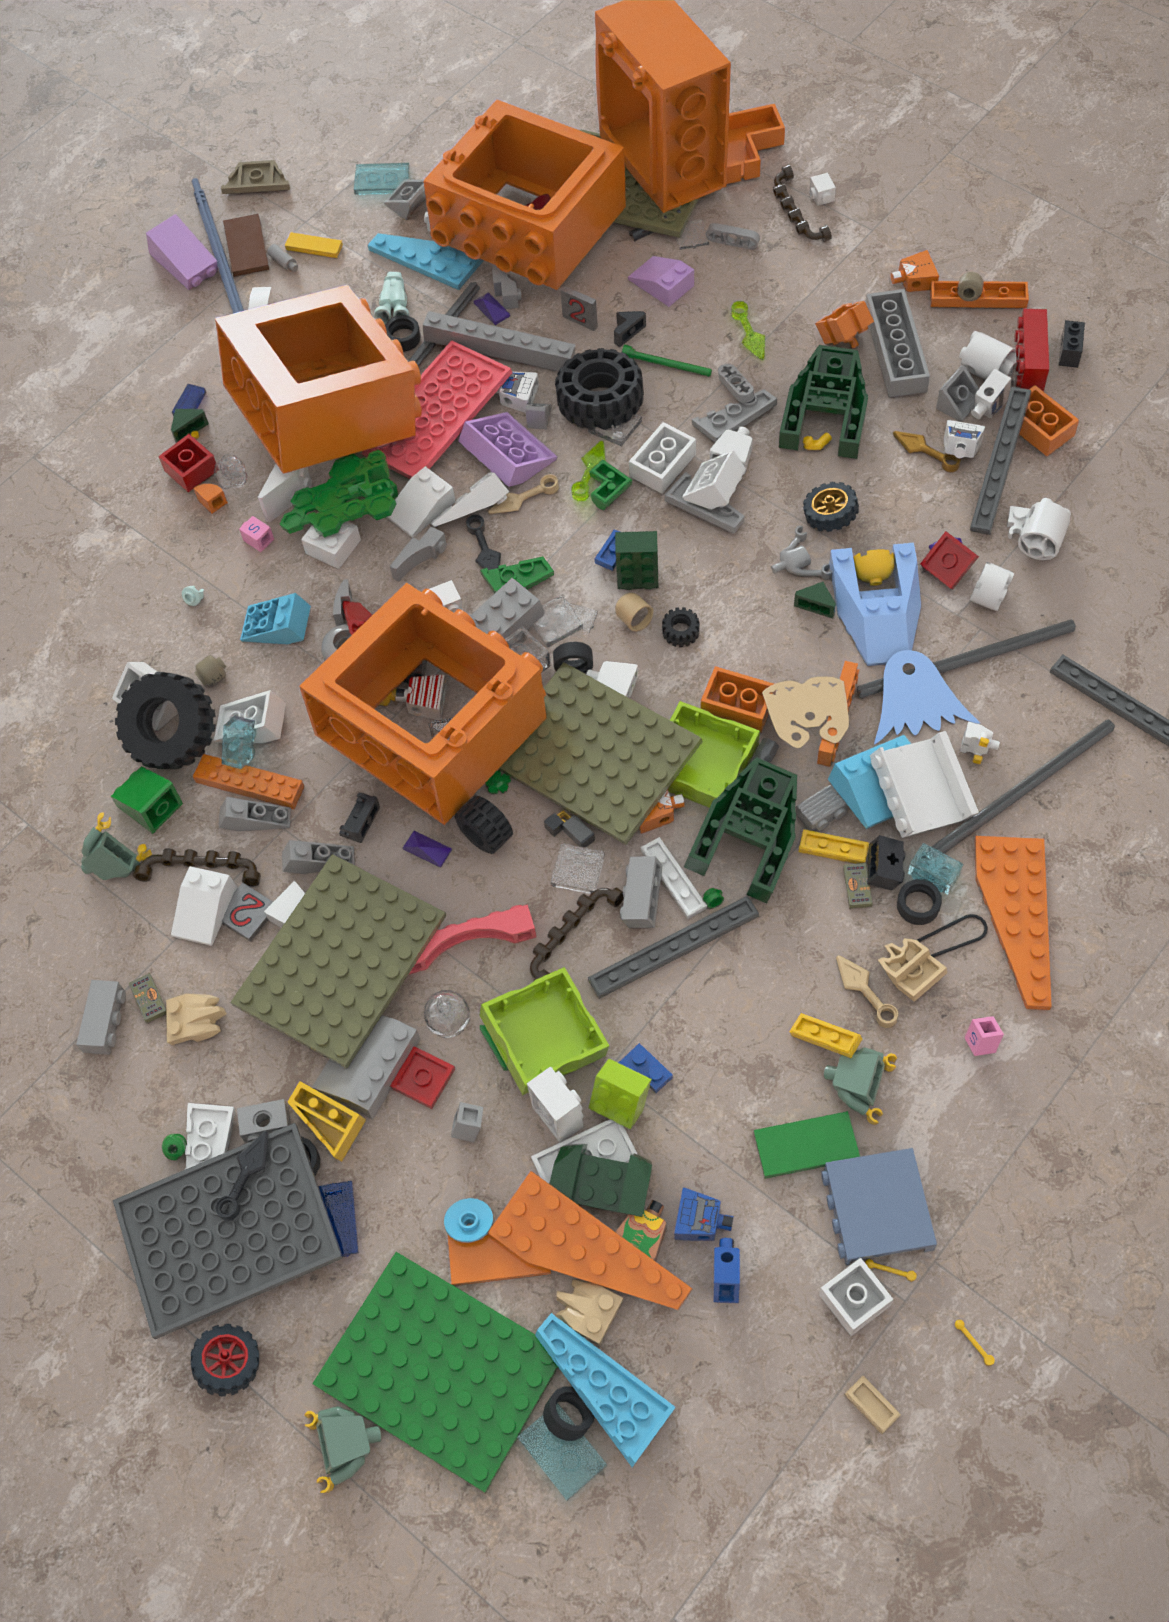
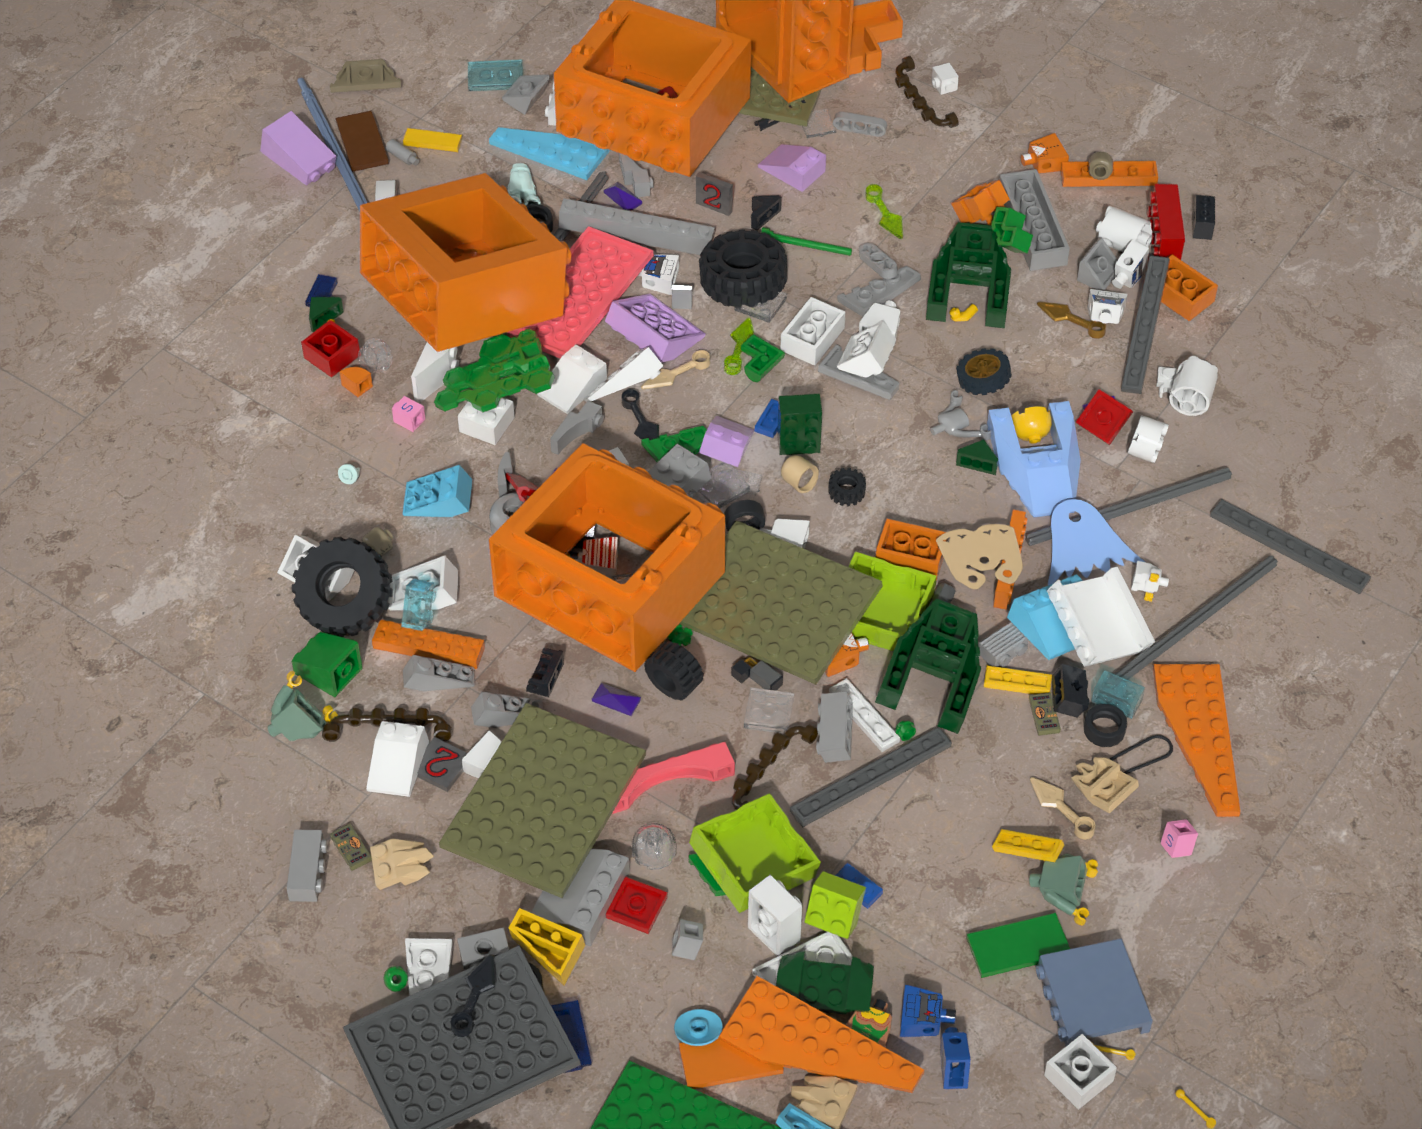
camera: 10 degrees left, 10 degrees down
(564, 573) = (726, 441): none -> lavender slope
(869, 351) = (1008, 227): none -> green brick

